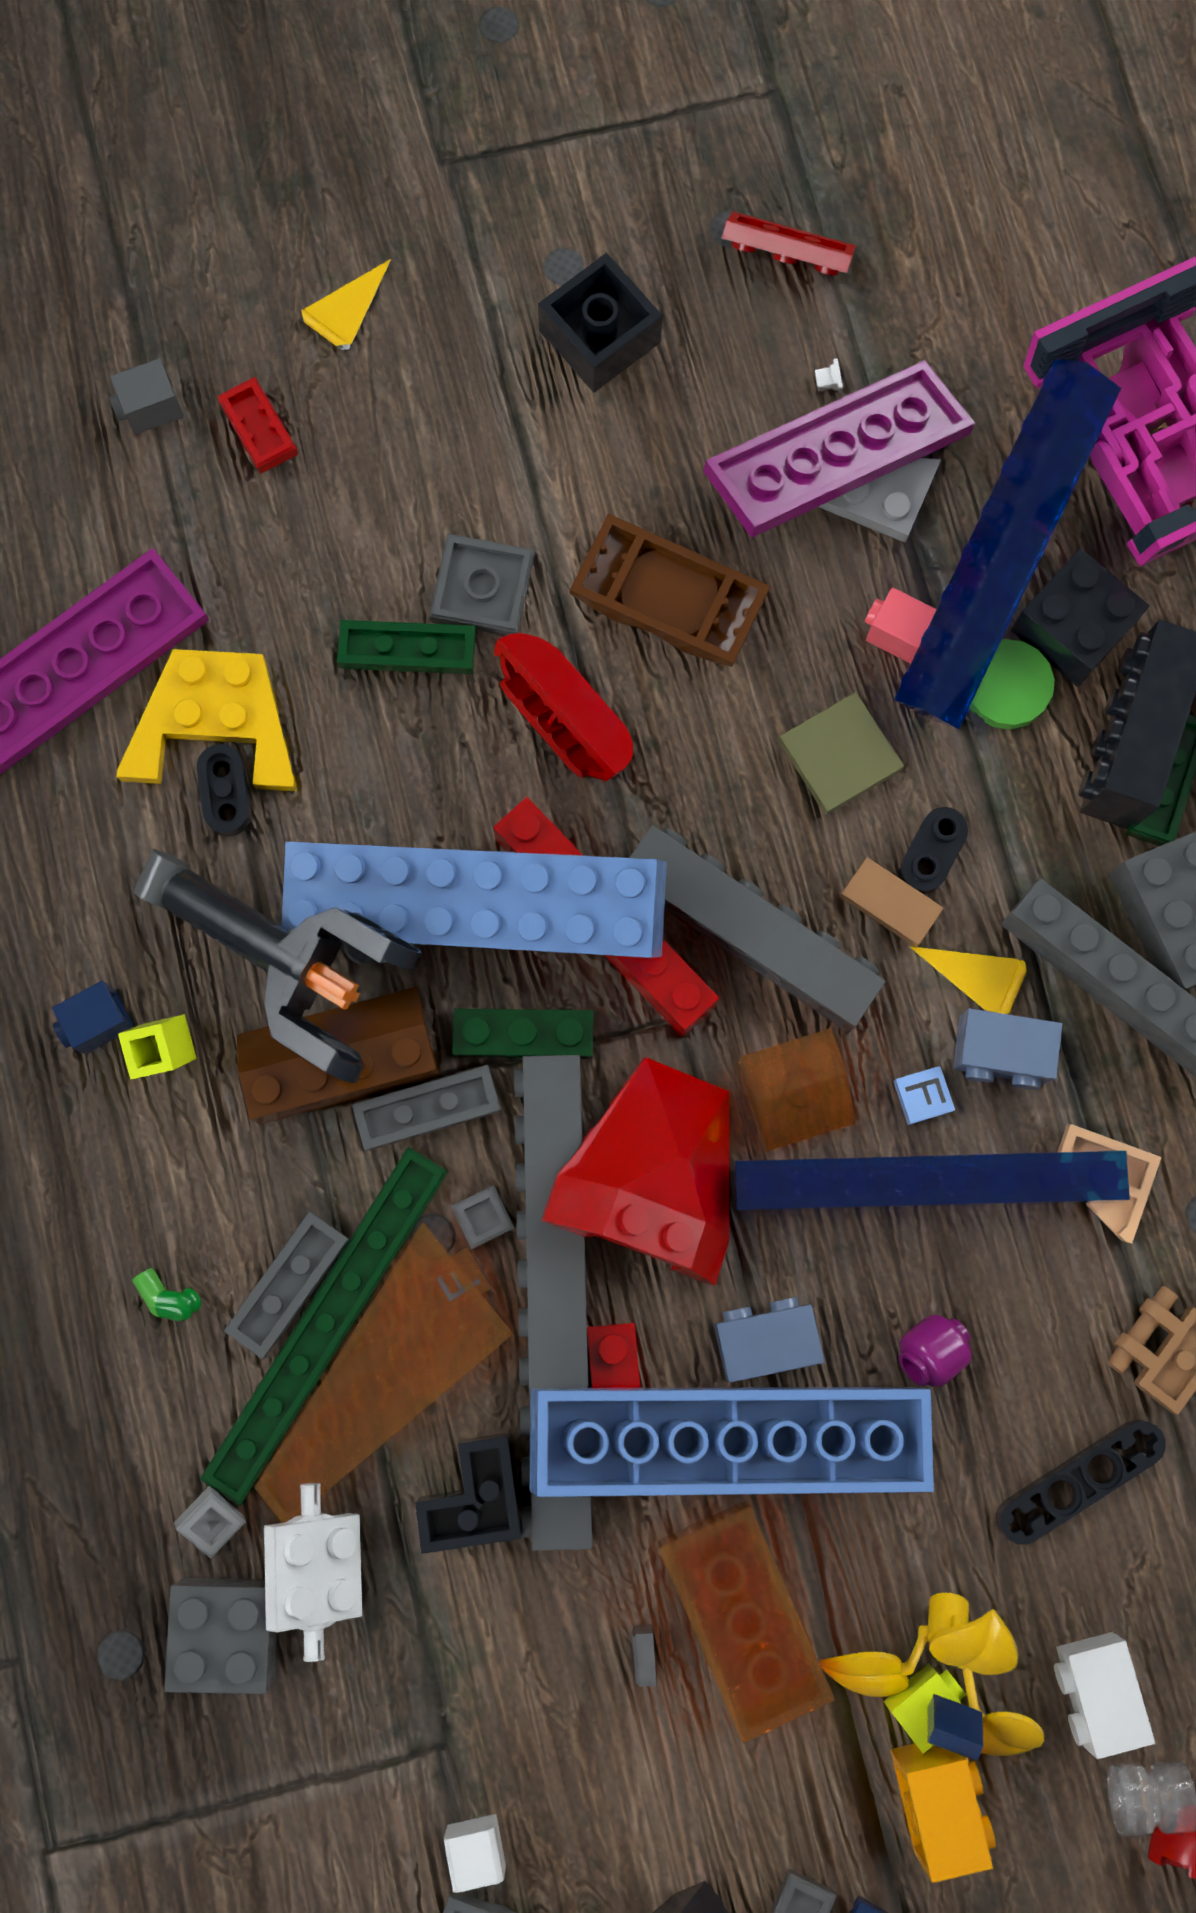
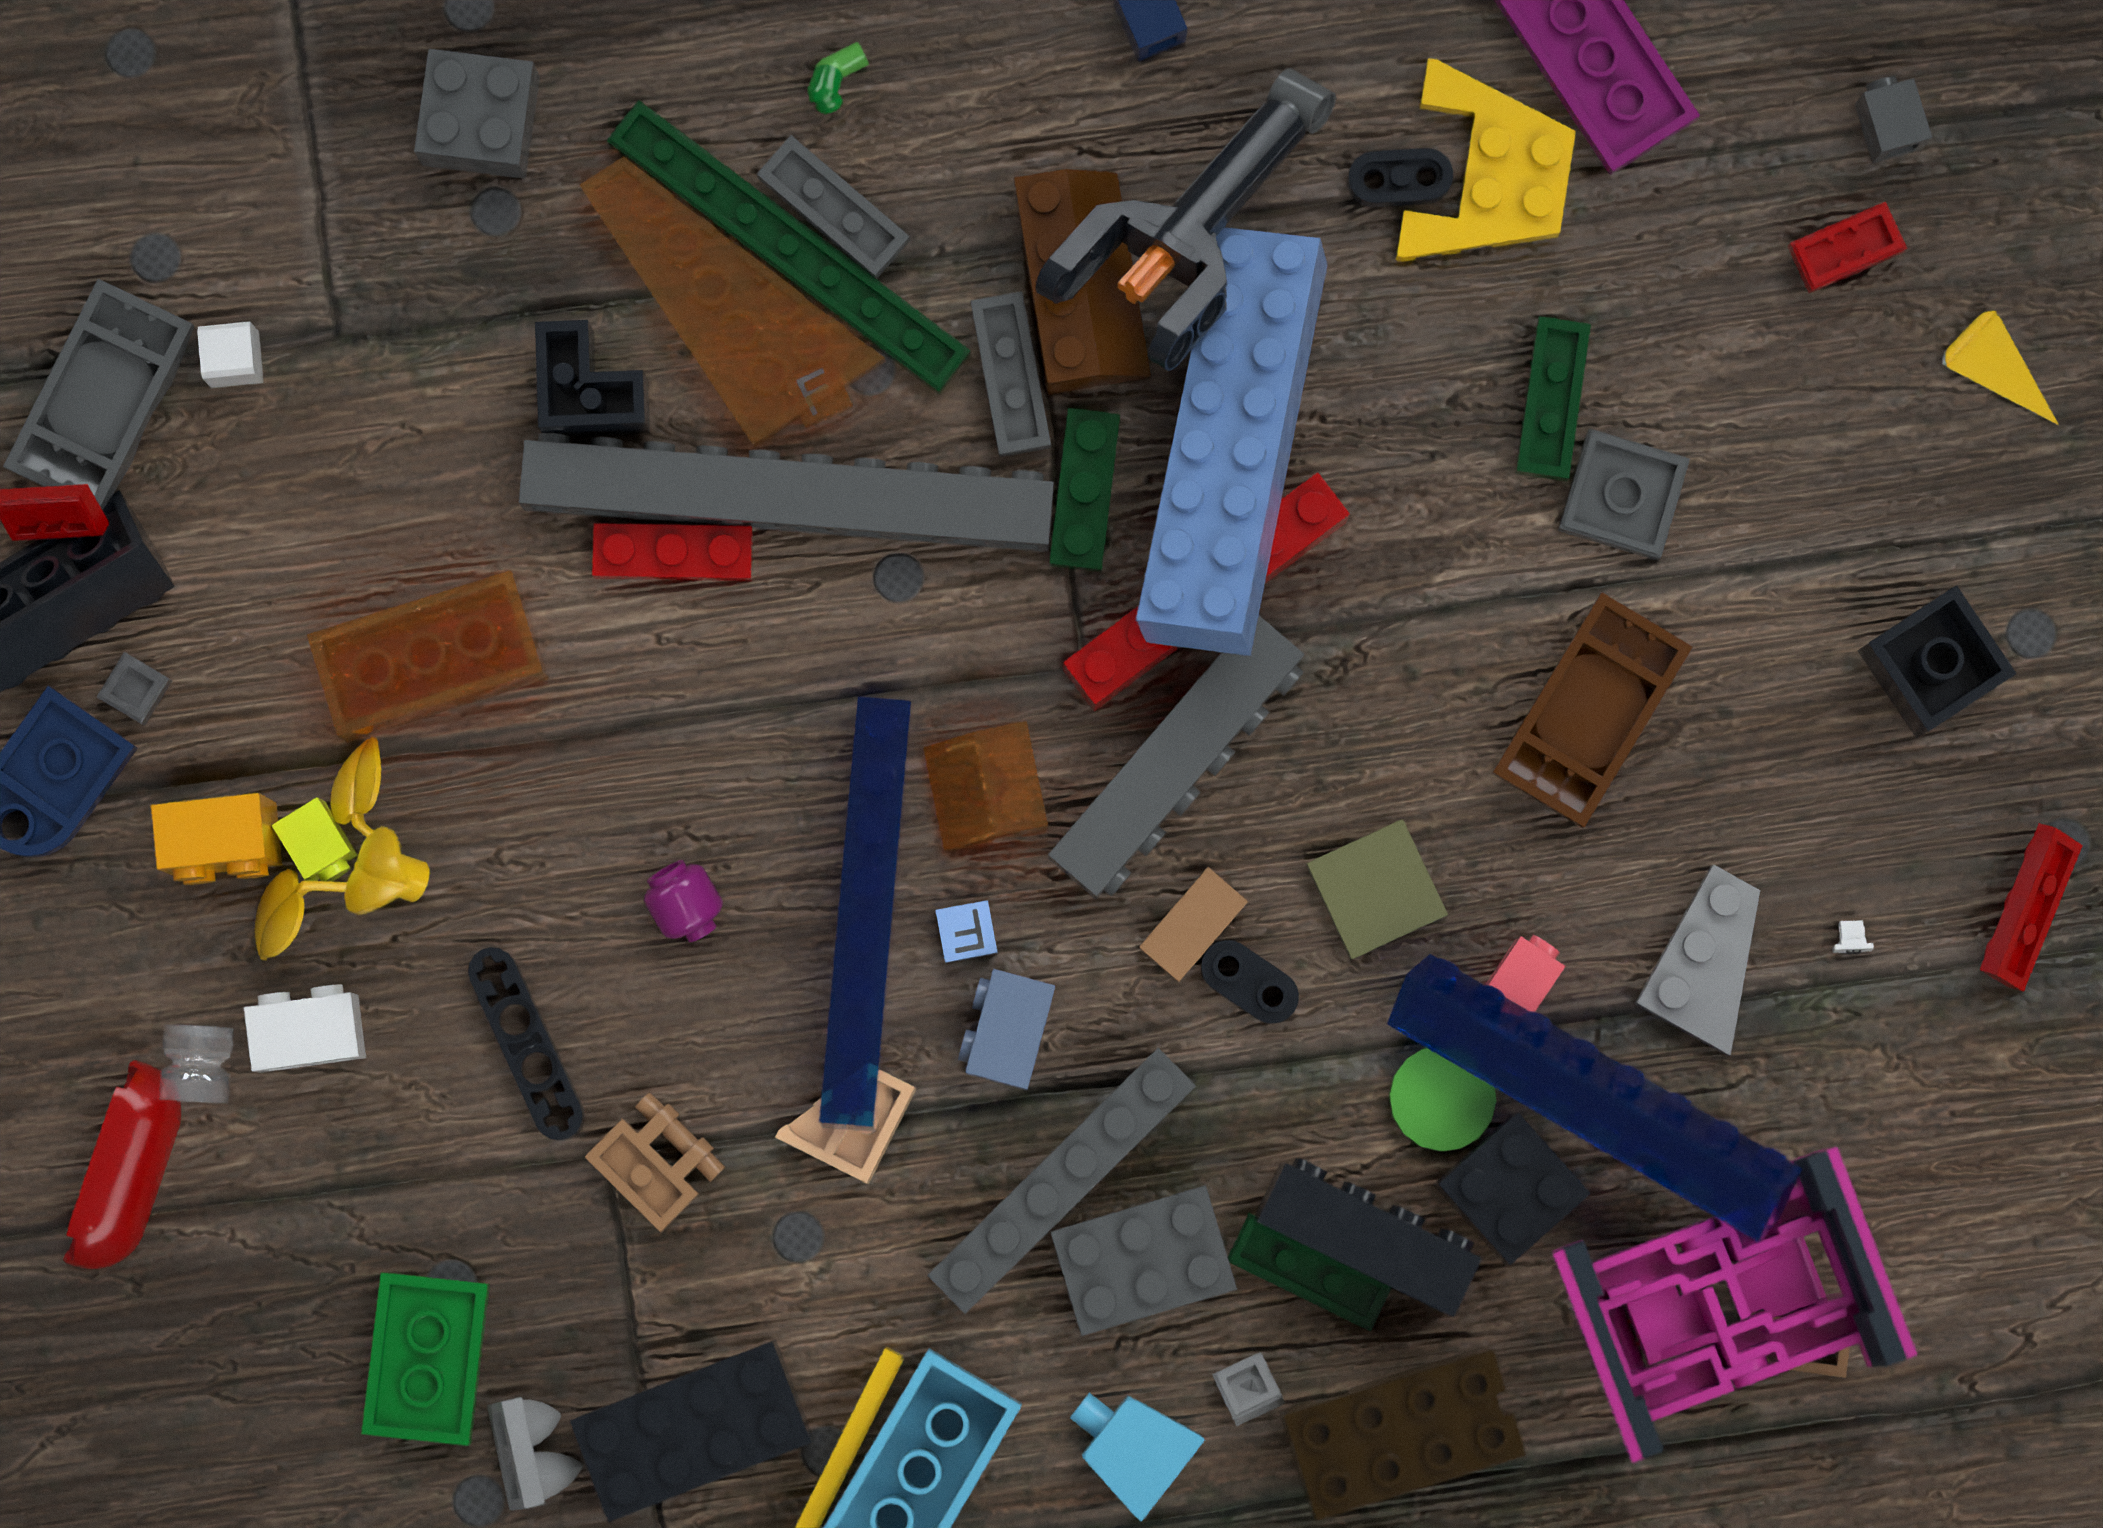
camera: 95 degrees right, 5 degrees up
(157, 1046) = (1108, 84): neon yellow brick -> none
(209, 1522) = (593, 107): light grey tile -> none
(312, 1572) = (530, 210): white plate -> none
(482, 1217) = (884, 426): flat silver tile -> none
(563, 707) = (1461, 572): red brick -> none
(644, 1655) = (403, 549): flat silver tile -> none
(654, 1173) = (910, 615): red wedge -> none
(730, 1441) = (613, 659): medium blue brick -> none
(768, 1341) = (714, 719): sand blue brick -> none
(837, 448) = (1747, 928): magenta plate -> none
(955, 1727) = (296, 855): dark blue tile -> none
(985, 979) = (1094, 1020): yellow sticker -> none

